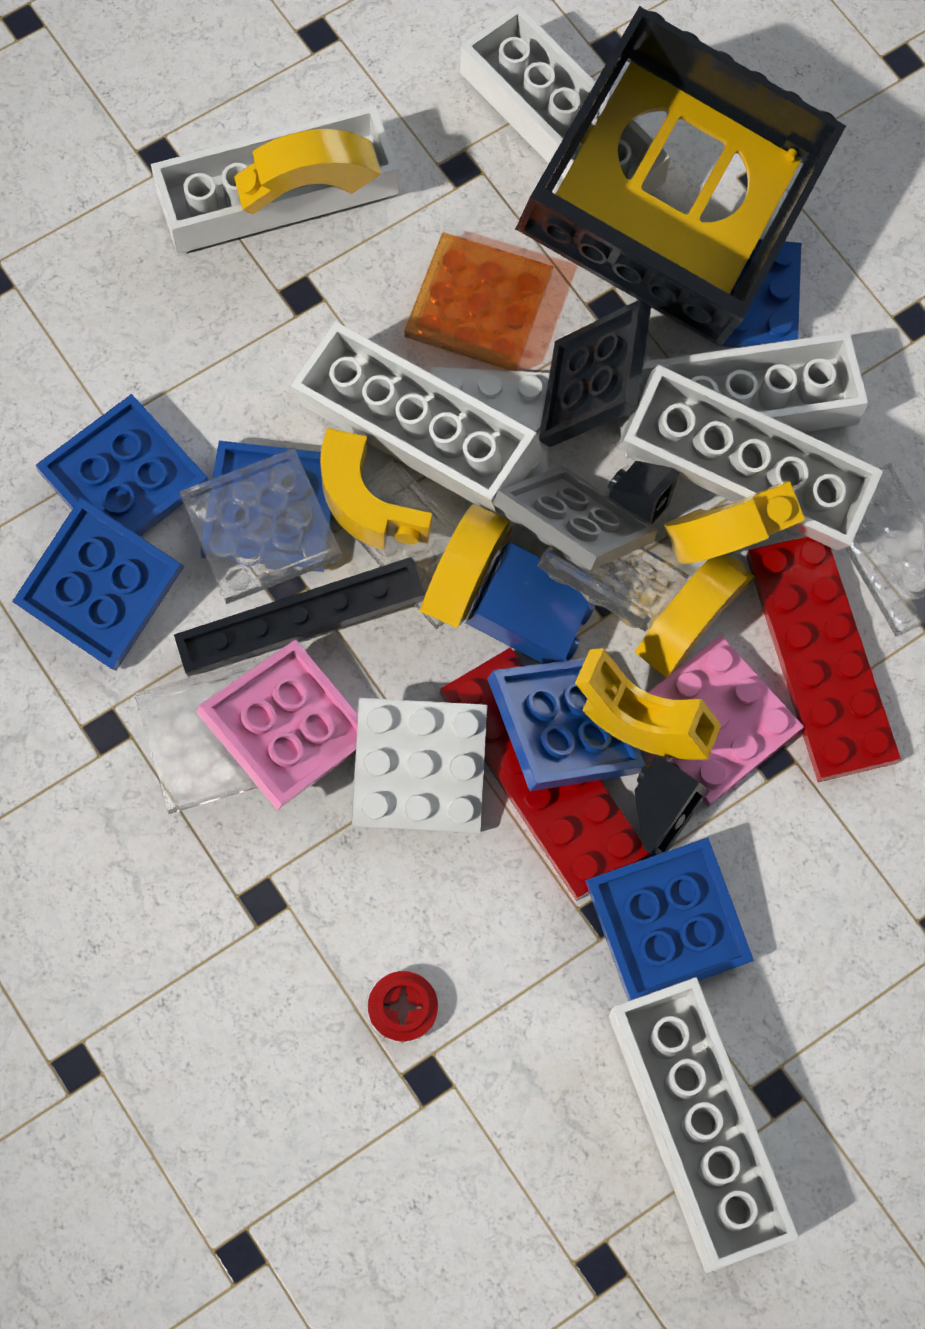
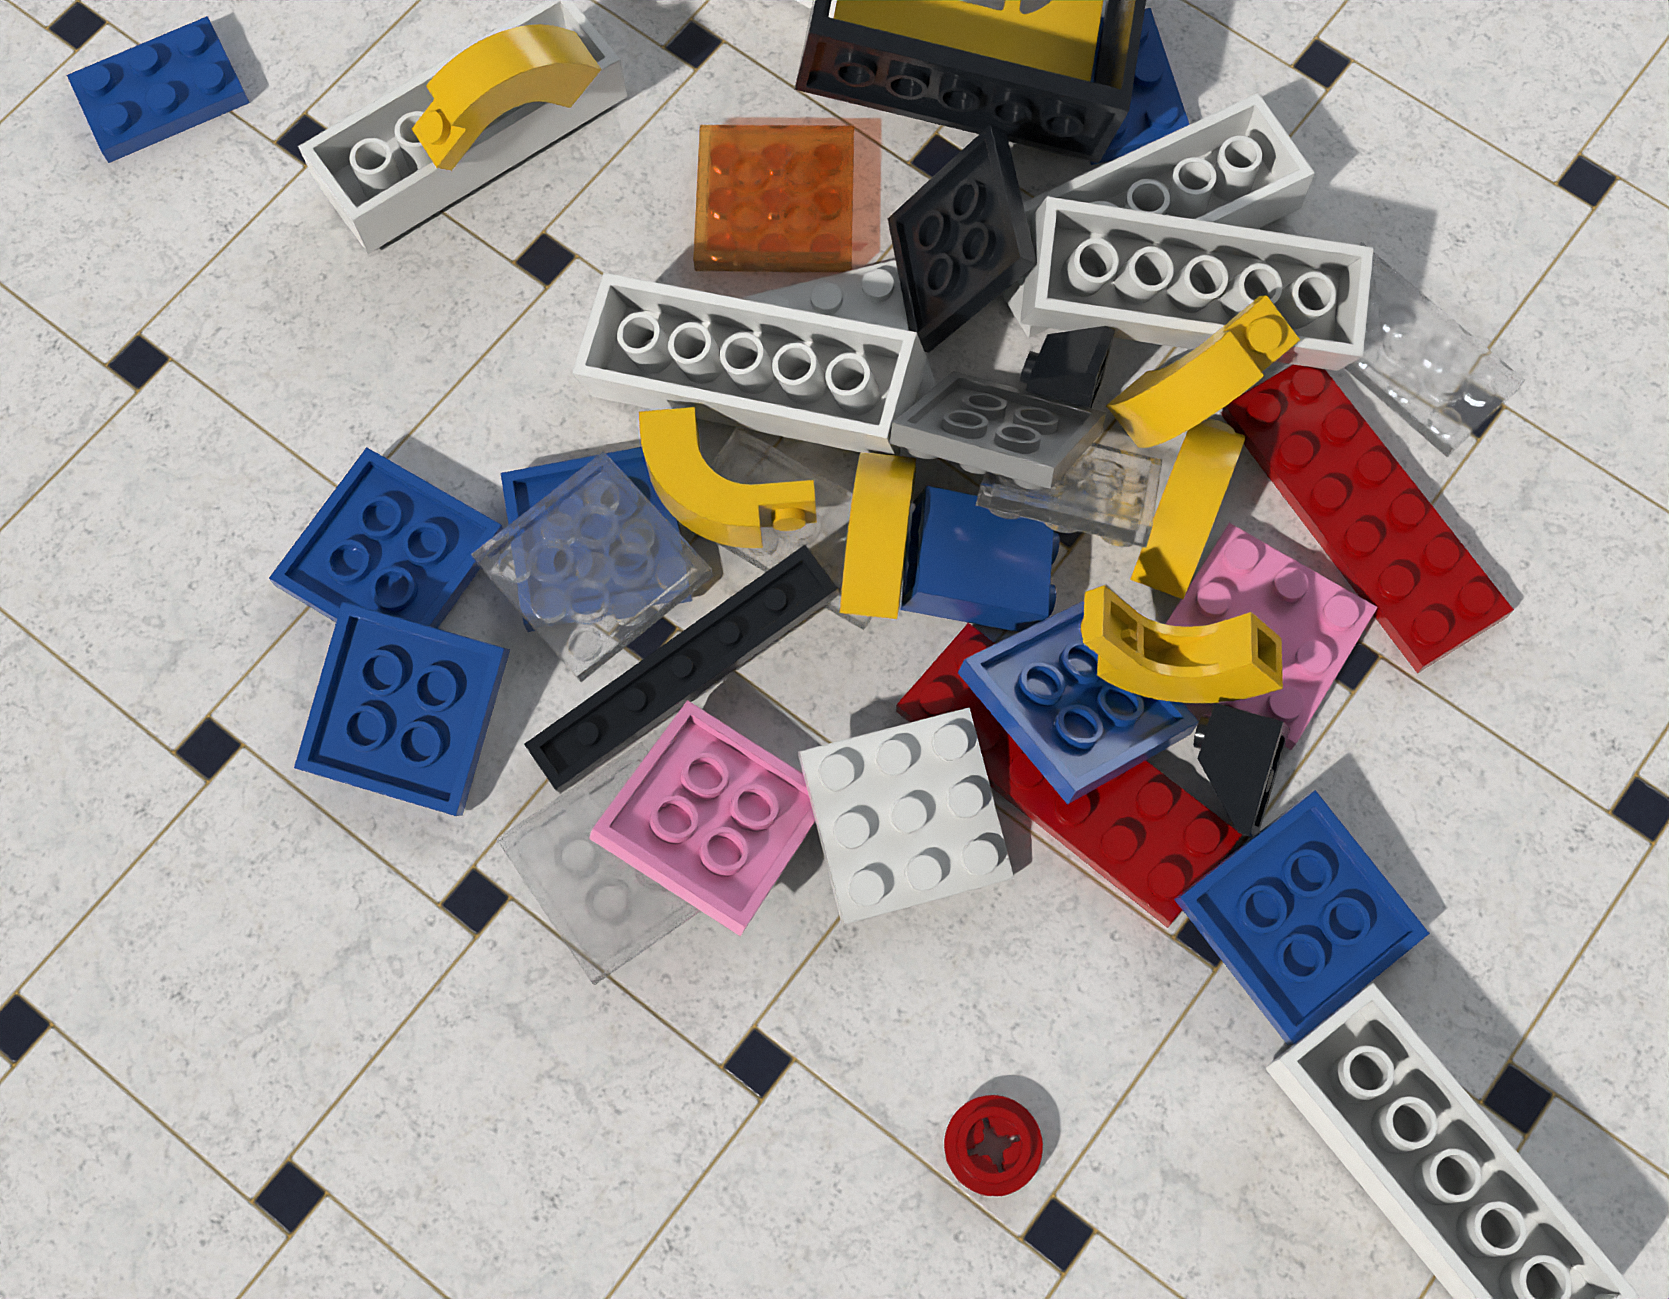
camera: 10 degrees left, 0 degrees up
(65, 87) = (157, 89): none -> blue plate

